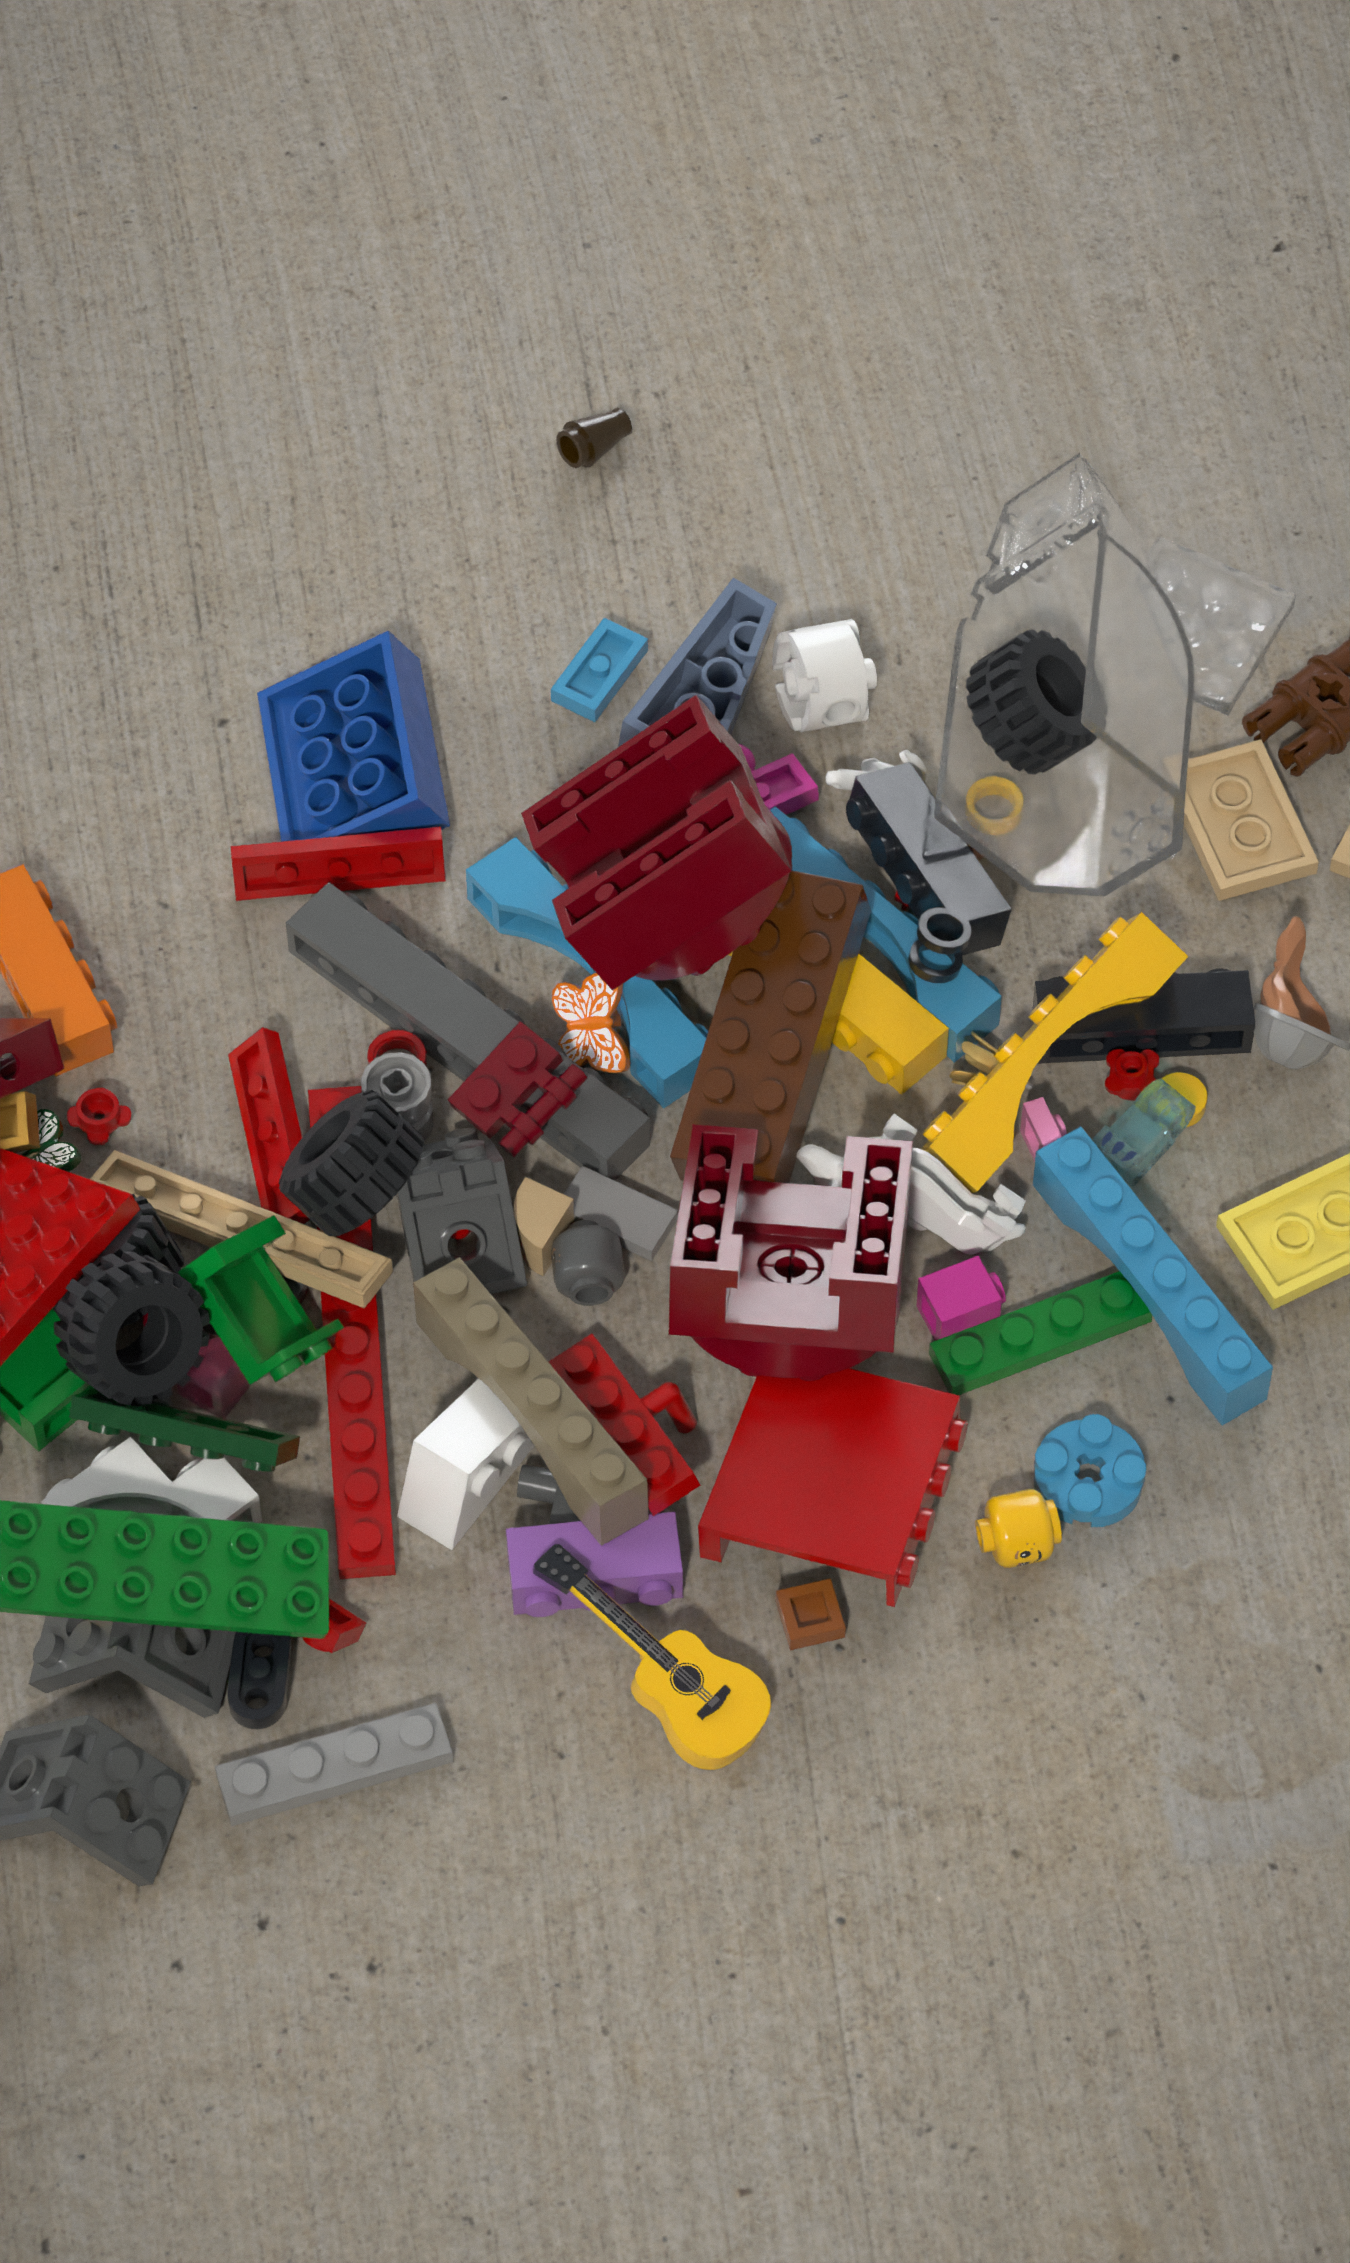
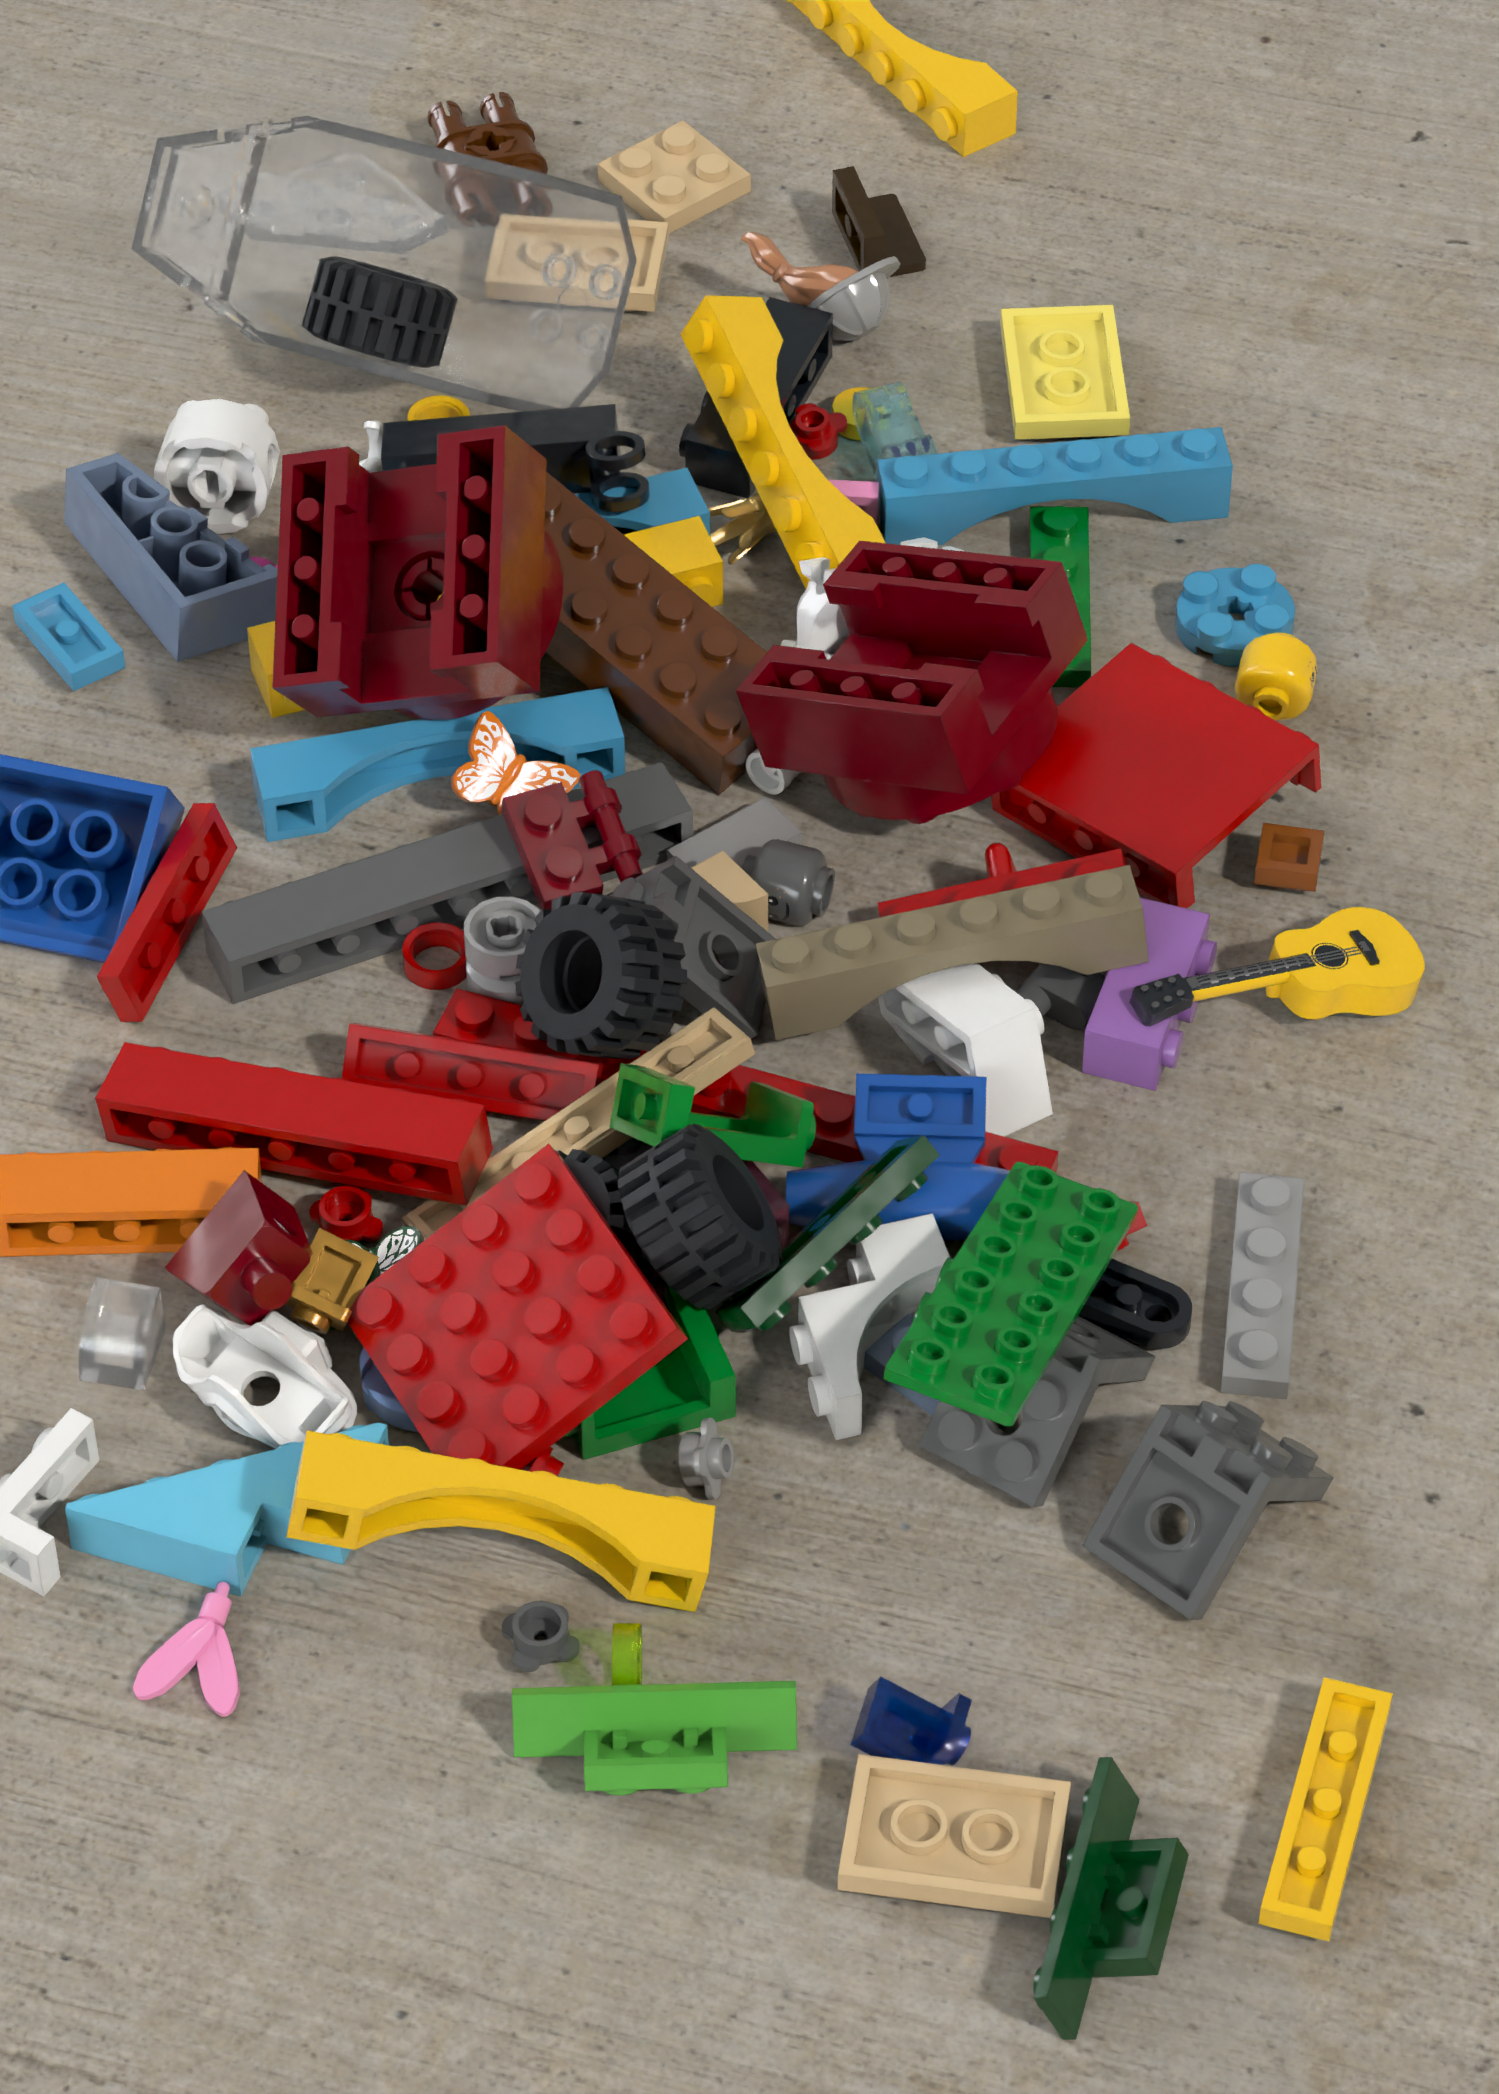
camera: 65 degrees left, 10 degrees down
(154, 1039) = (298, 1122): none -> red brick
(338, 1463) = (900, 1107): none -> blue plate

